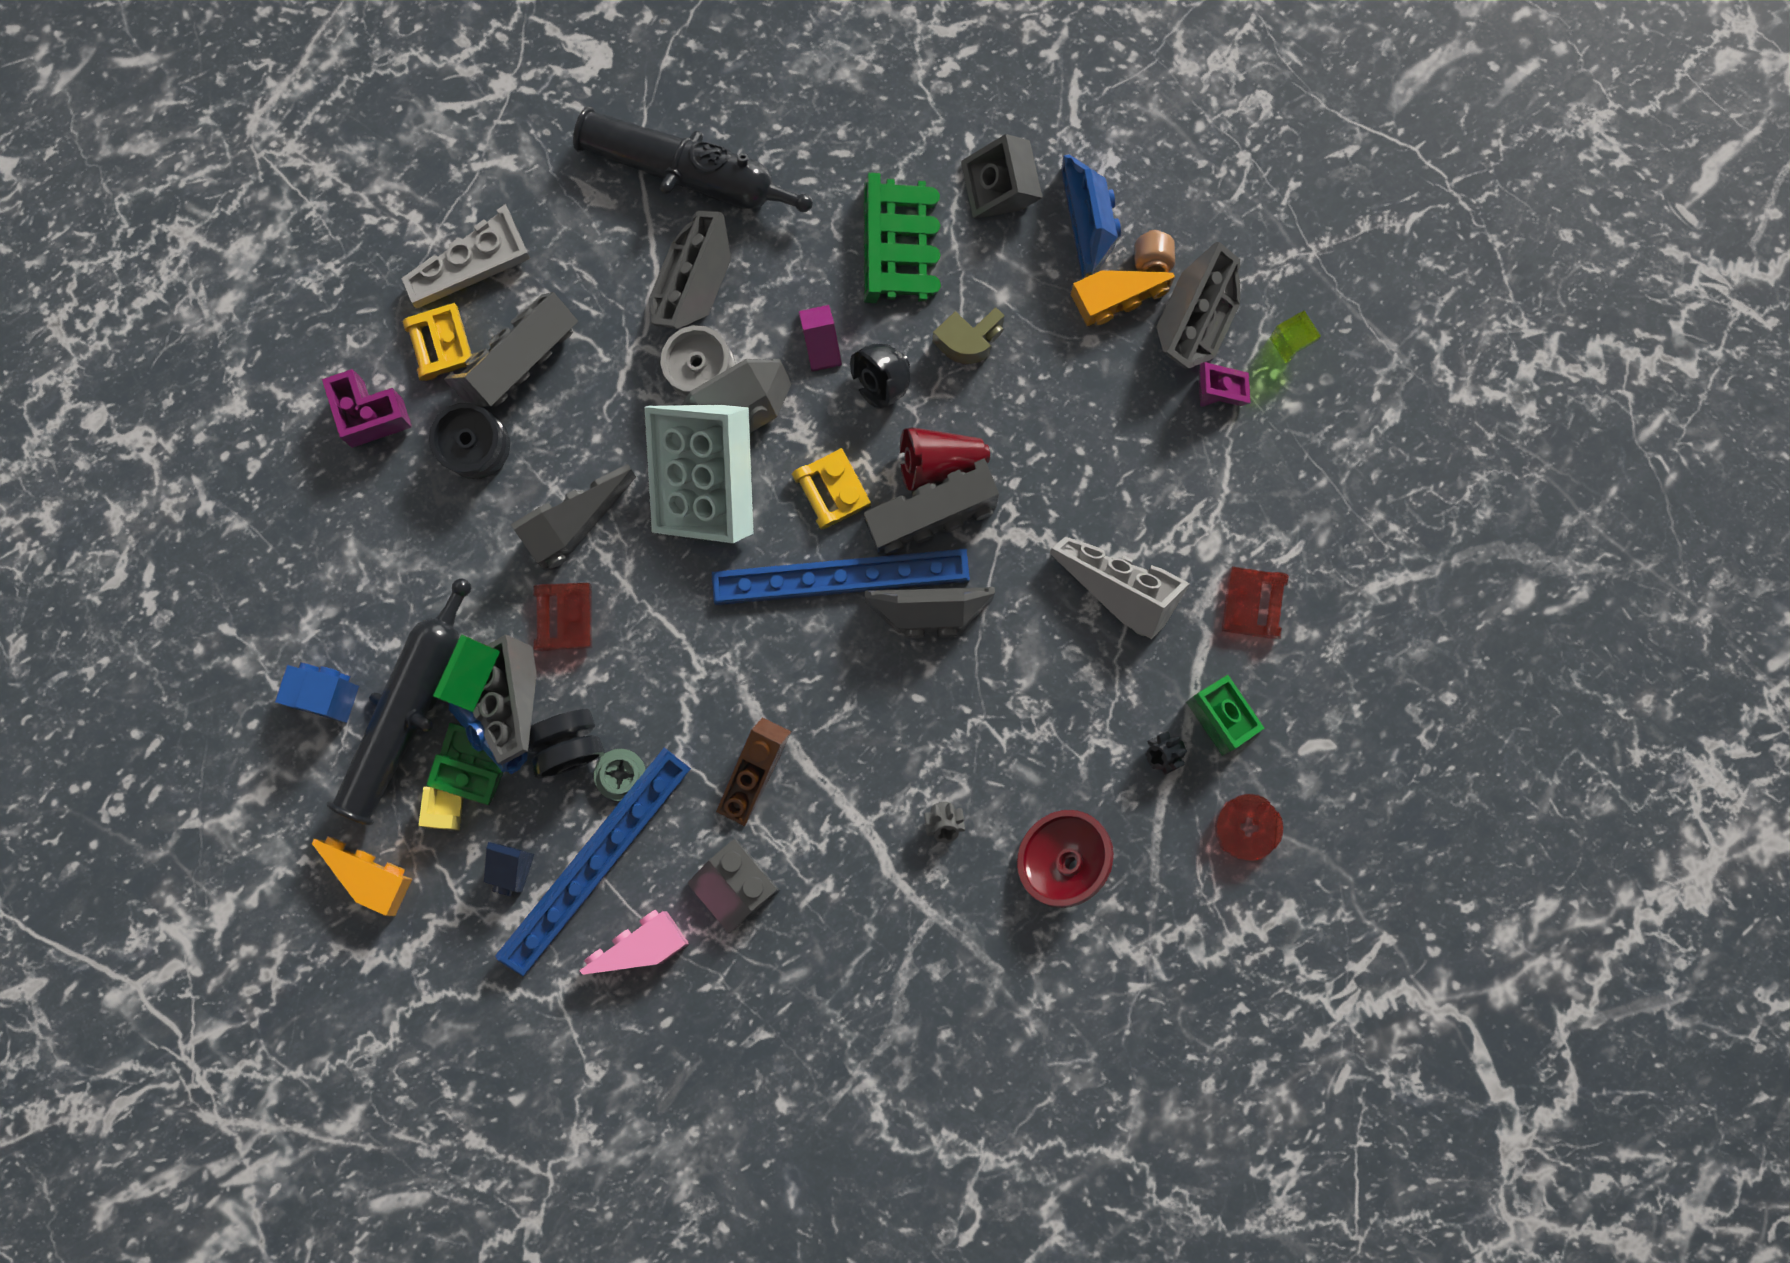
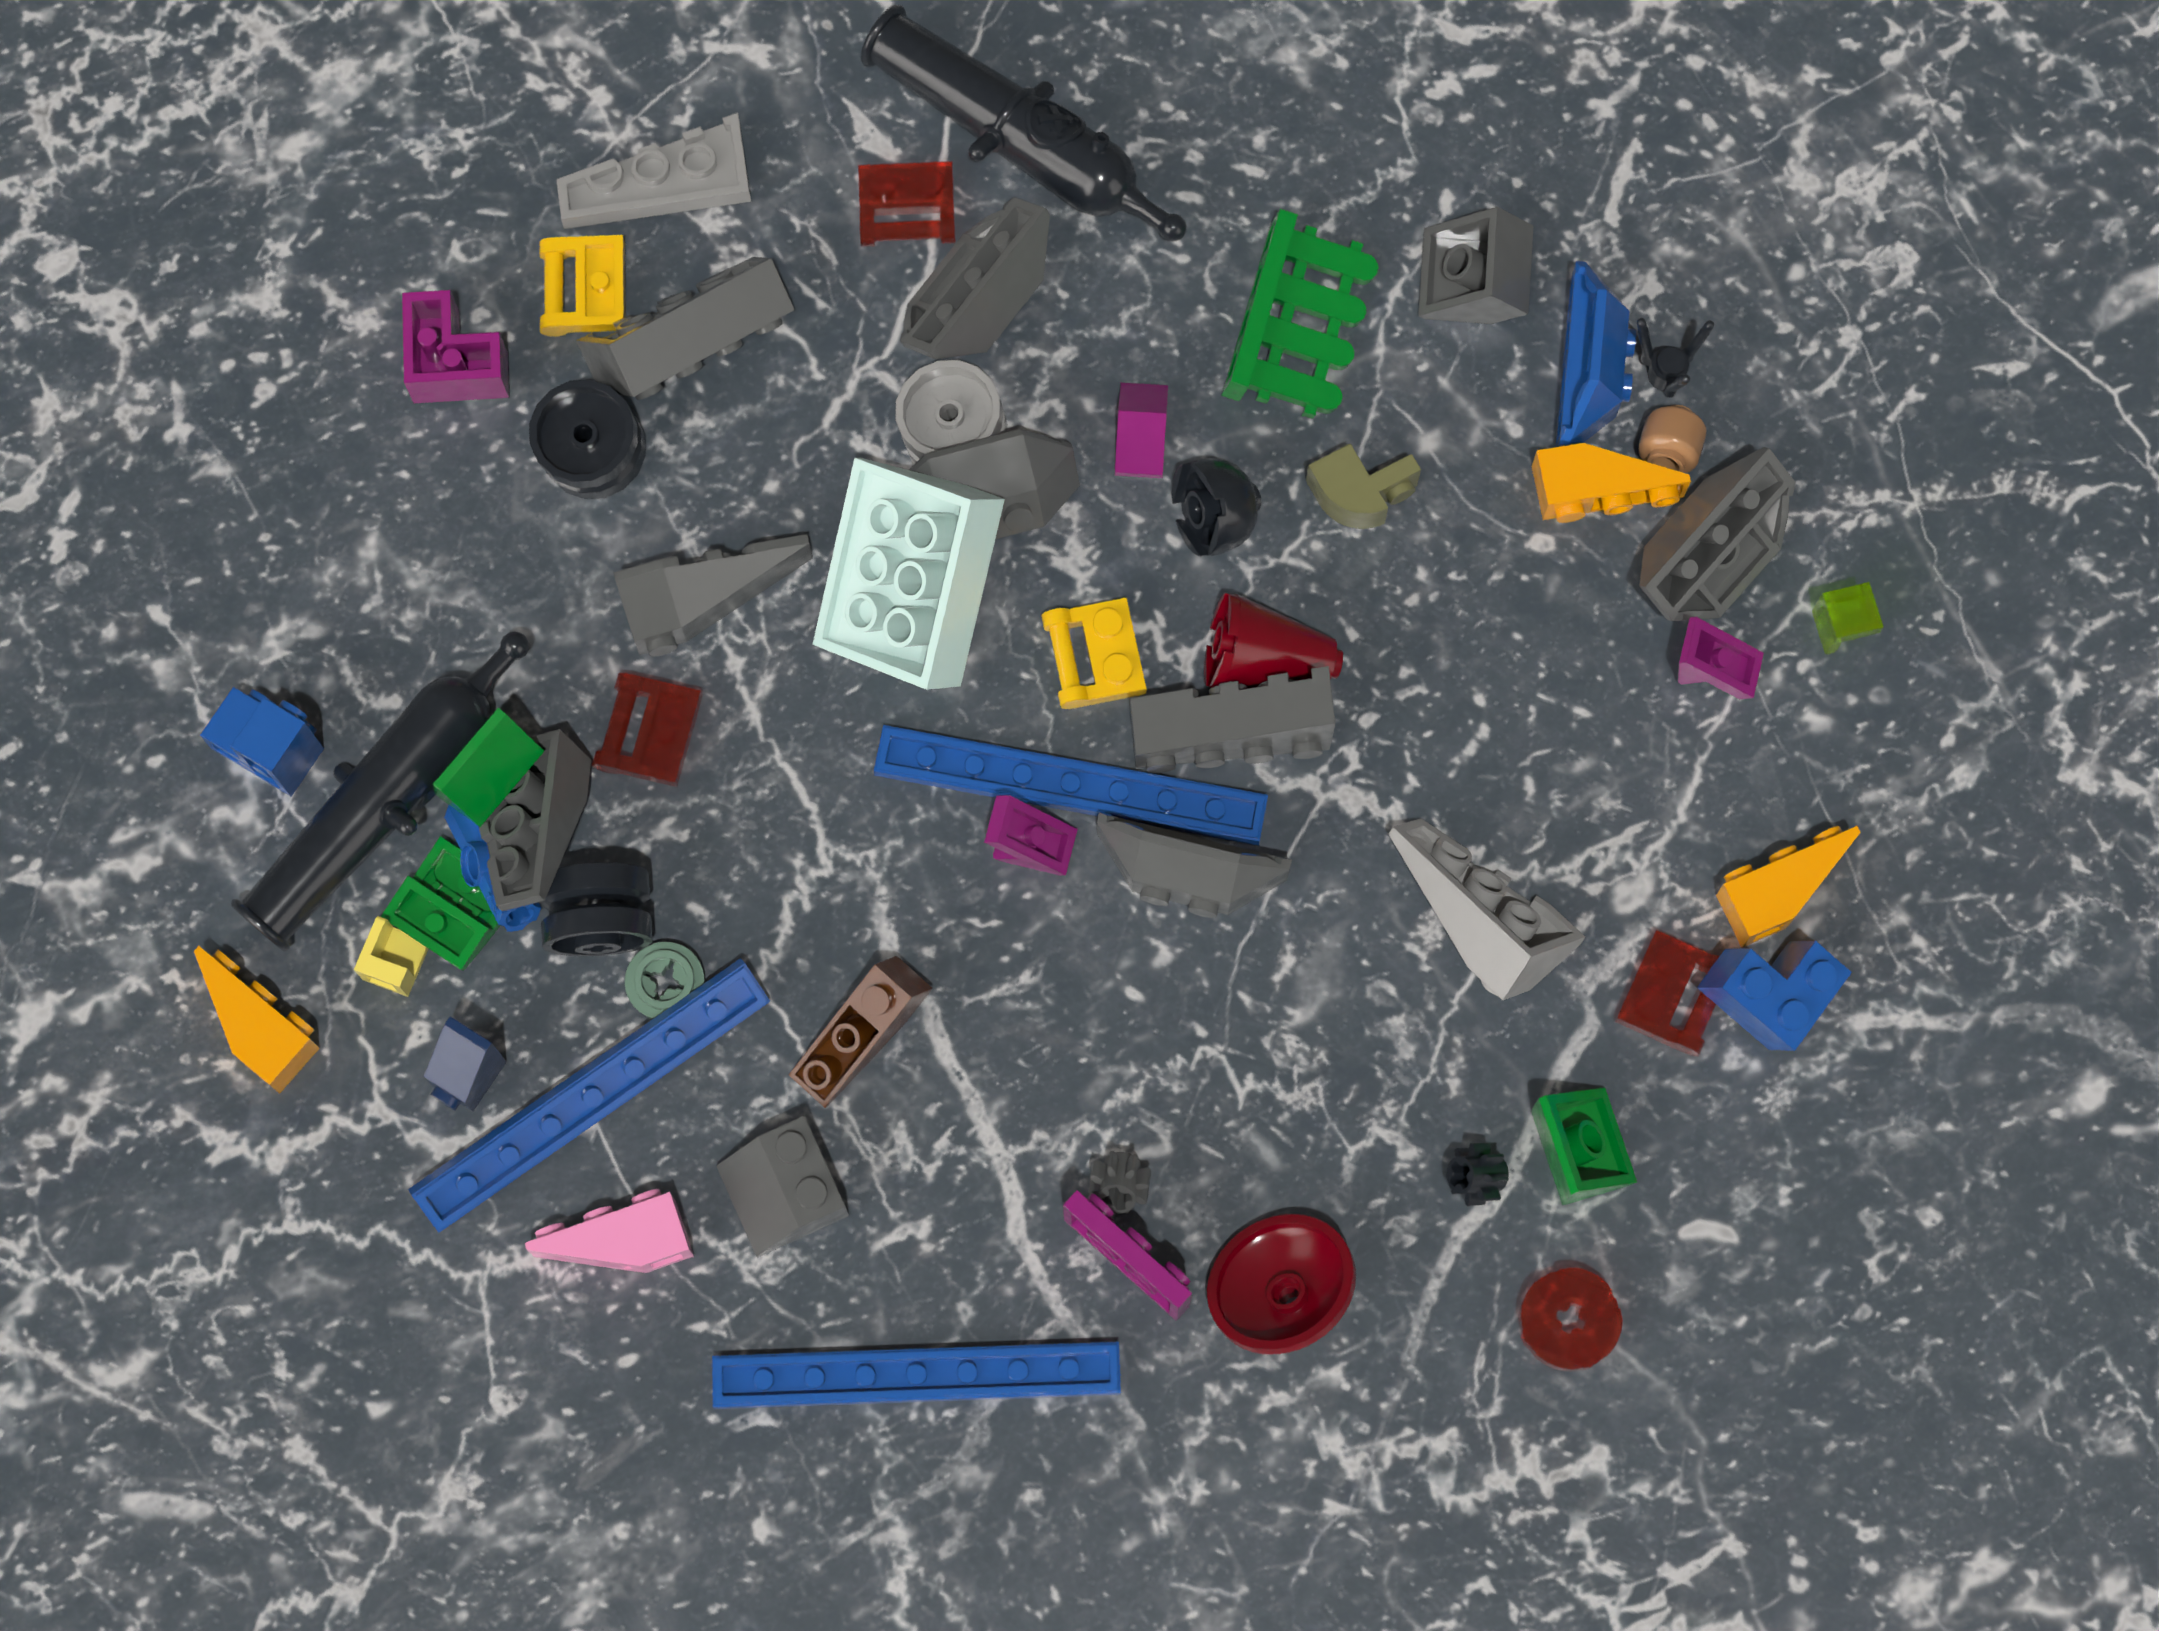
camera: 15 degrees right, 5 degrees down
(627, 225) = (902, 191): none -> clear red plate
(824, 617) = (1029, 837): none -> magenta slope
(851, 980) = (916, 1375): none -> blue tile
(965, 866) = (1128, 1253): none -> magenta plate
(1139, 205) = (1669, 364): none -> black plant
(1302, 522) = (1772, 896): none -> light orange slope
(1321, 589) = (1778, 1000): none -> blue brick

